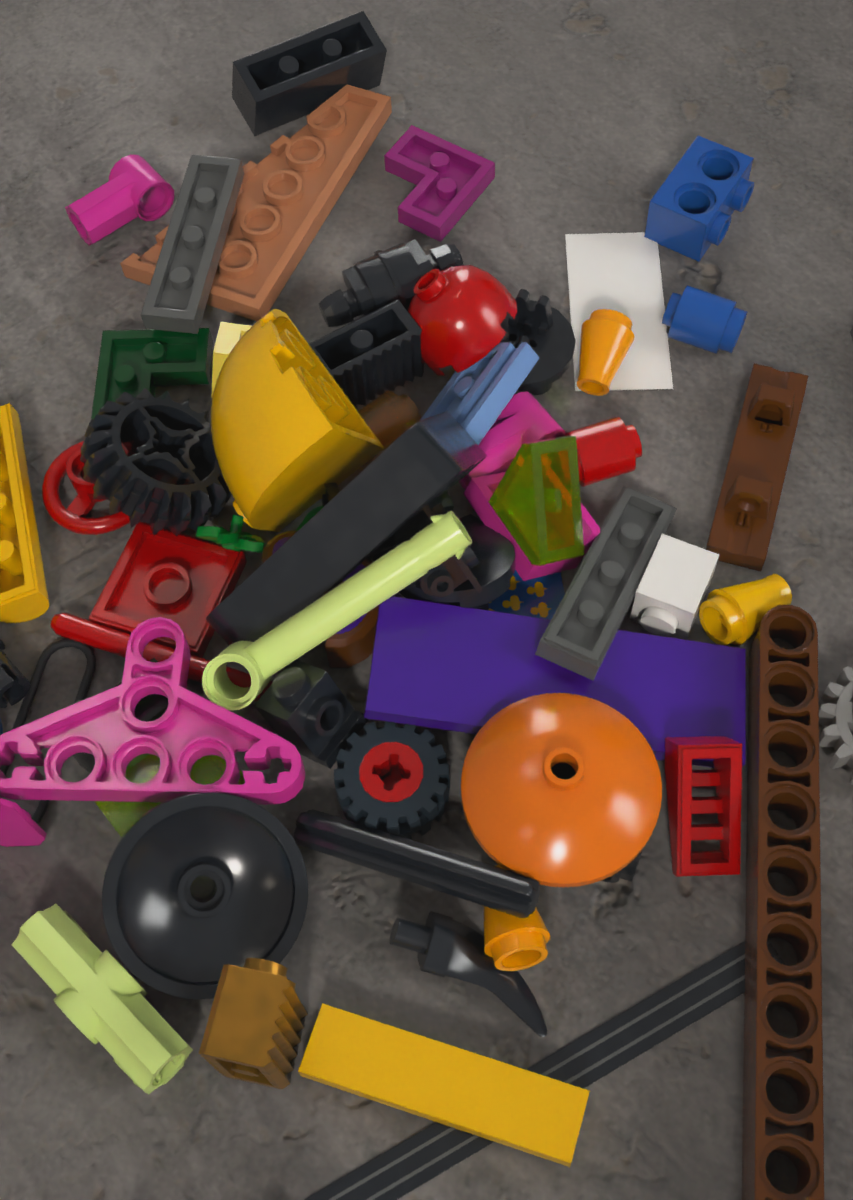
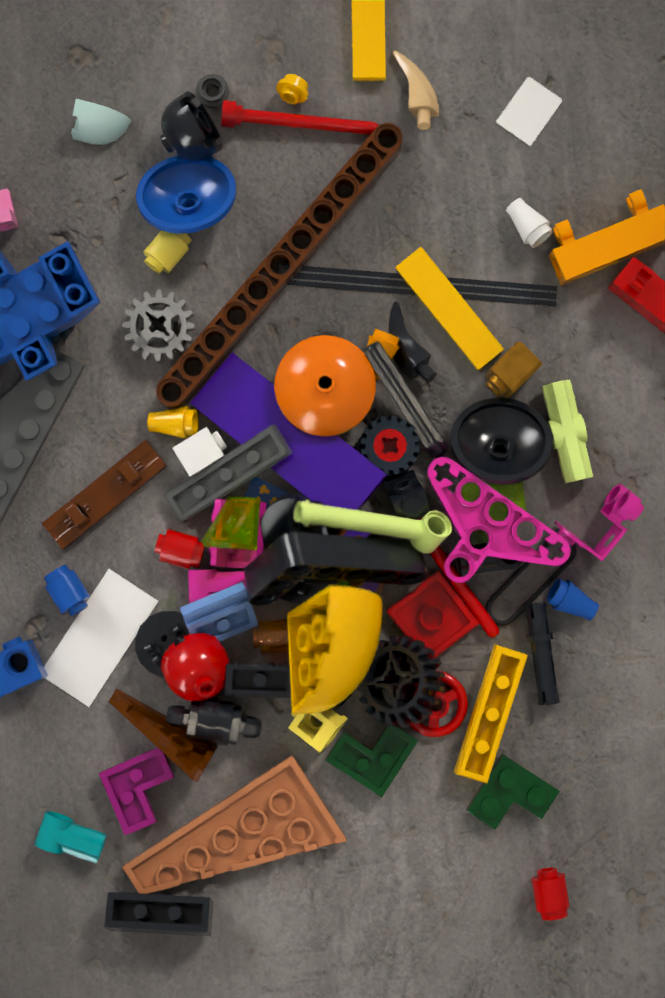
camera: 155 degrees left, 25 degrees up
(130, 193) = (312, 895): dark pink piece -> none
(193, 245) = (302, 819): dark grey plate -> none
(234, 538) = (388, 620): green plant -> none
(398, 218) = (171, 740): none -> reddish brown wing
(488, 91) = (61, 834): none -> teal piece
(602, 349) = (132, 607): light orange cone -> none
(681, 804) = (256, 364): red slope -> none

